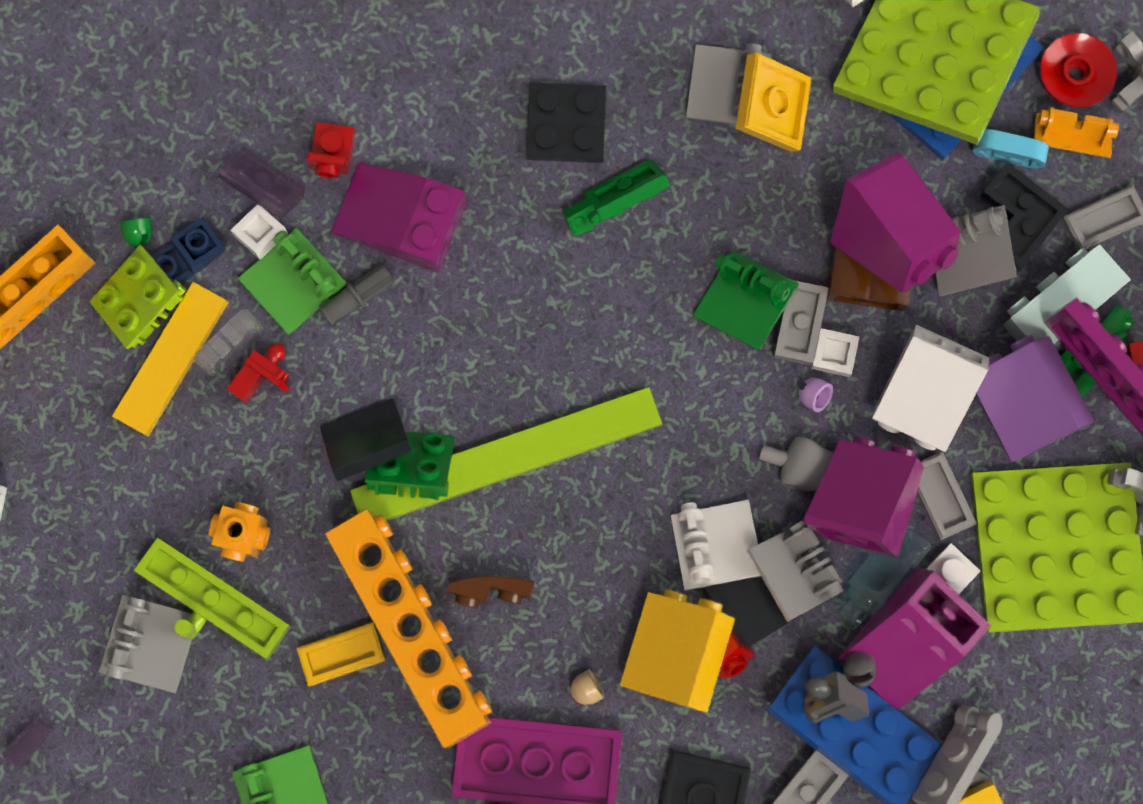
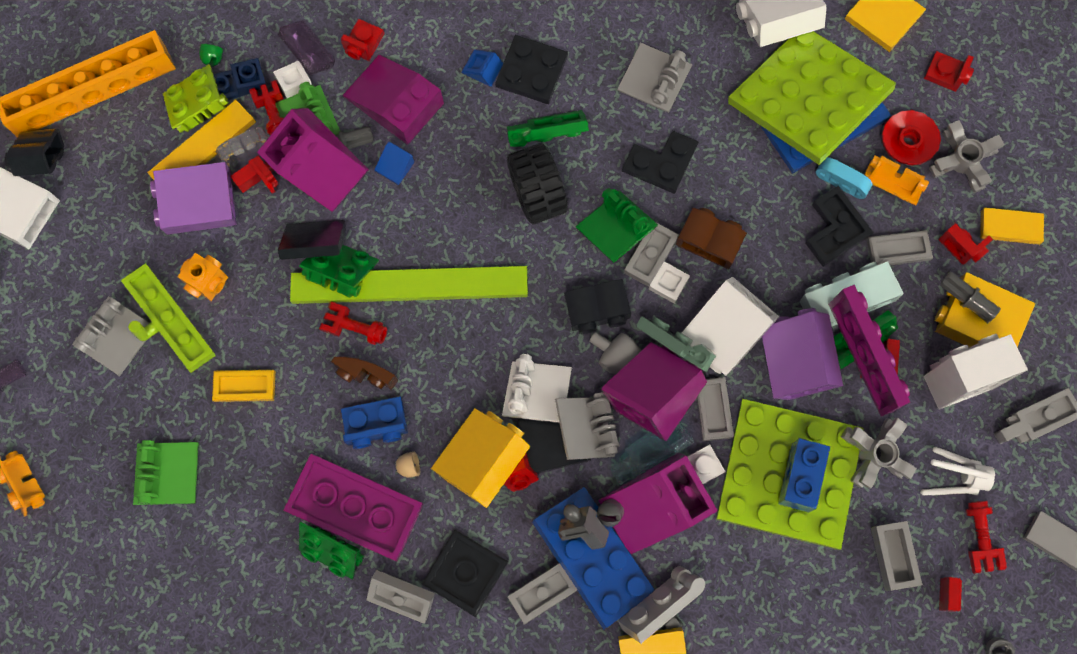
camera: 20 degrees right, 5 degrees down
(189, 433) = (193, 198): none -> medium lavender brick
(264, 303) = (268, 100): none -> red hinge
(330, 334) = (312, 158): none -> magenta slope
(350, 543) = (275, 307): light orange brick -> none
(431, 304) = (394, 163): none -> blue slope
(487, 533) = (375, 332): none -> red hinge
(501, 138) = (483, 66): none -> blue slope
(524, 647) = (374, 421): none -> blue bracket
(631, 278) = (537, 183): none -> black tyre
(756, 411) = (597, 306): none -> black brick
(773, 102) = (681, 95): yellow tile -> none
(780, 206) = (664, 169): none -> black plate
(814, 388) = (642, 303): lavender hinge -> none
(875, 431) = (678, 343): none -> sand green hinge
(895, 225) = (739, 200): magenta slope -> none
(983, 252) = (792, 238): light grey hinge -> none
(1080, 548) = (804, 475): none -> blue brick

